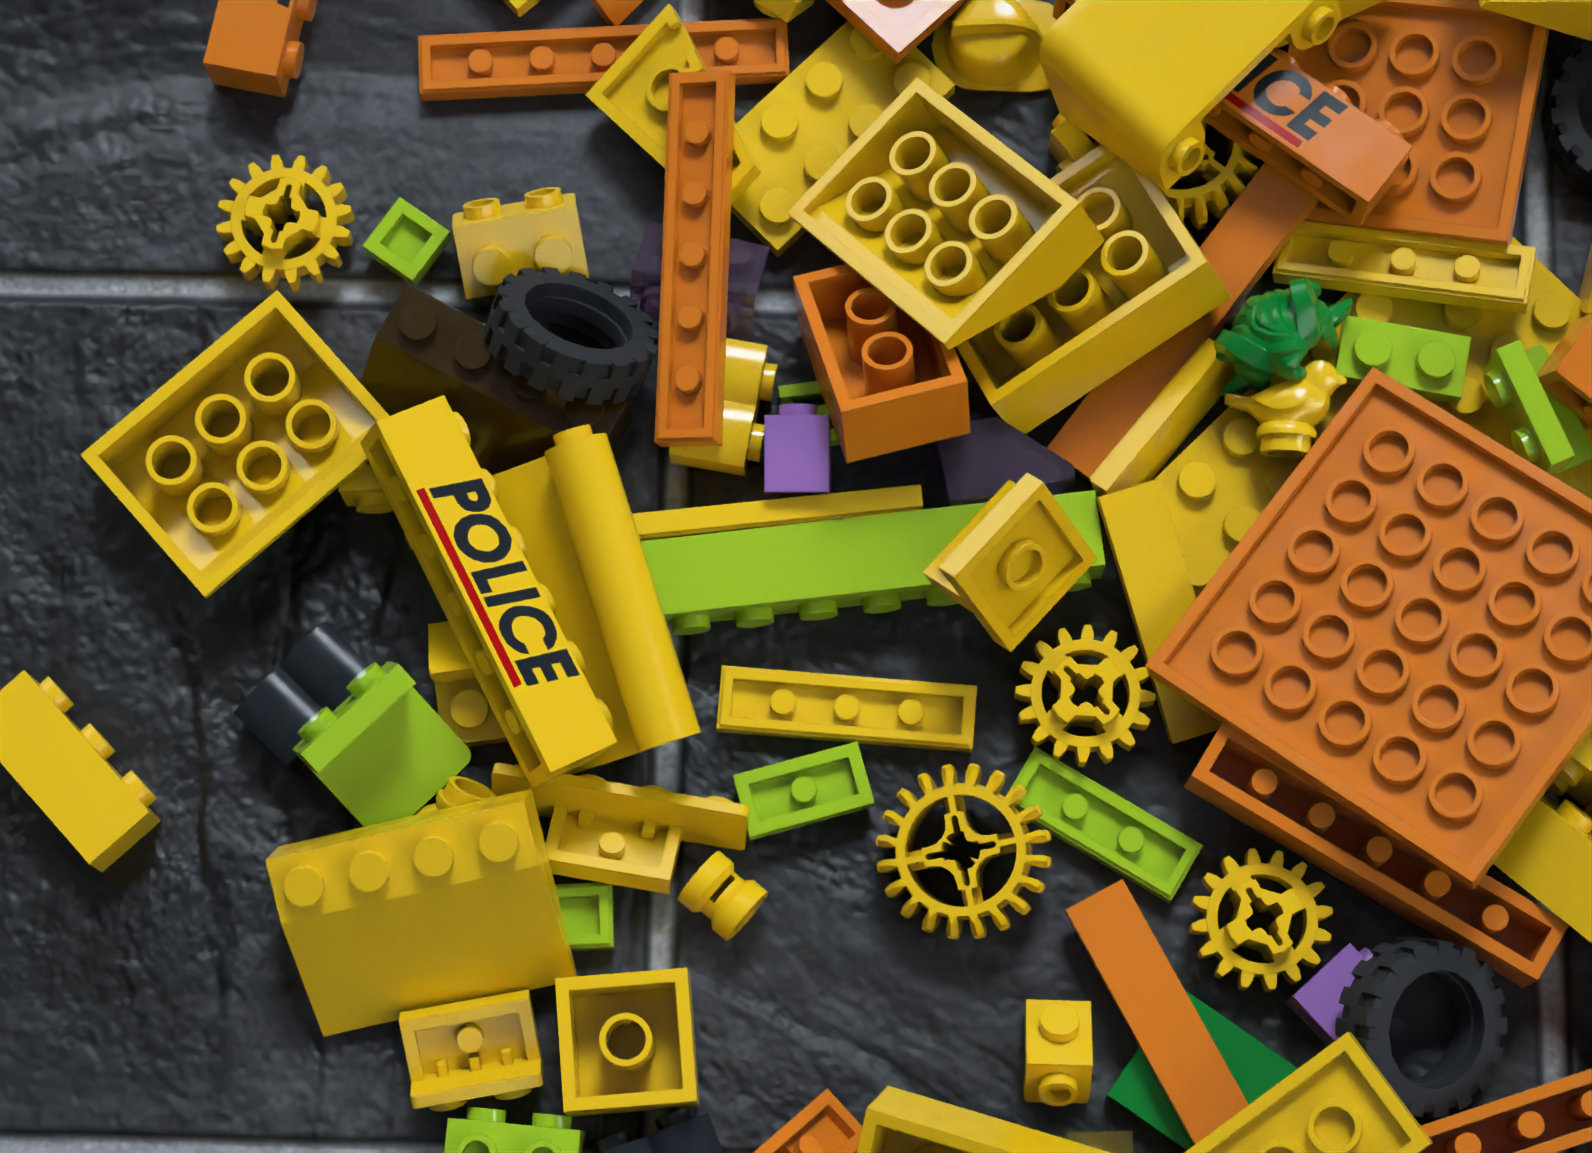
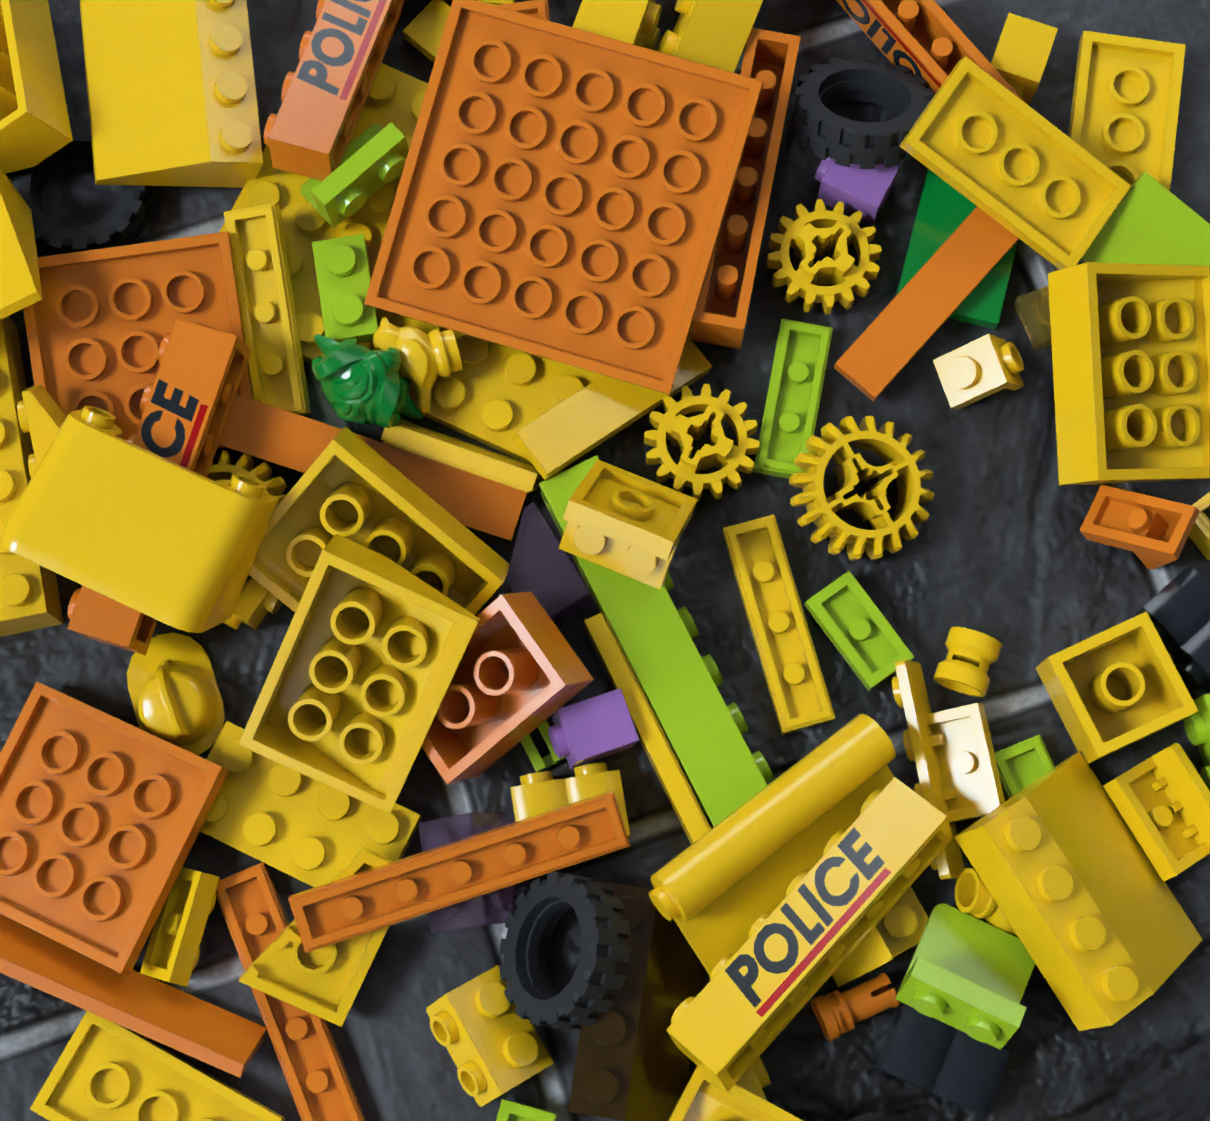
camera: 110 degrees left, 0 degrees up
(401, 611) = (841, 1011): none -> orange pin

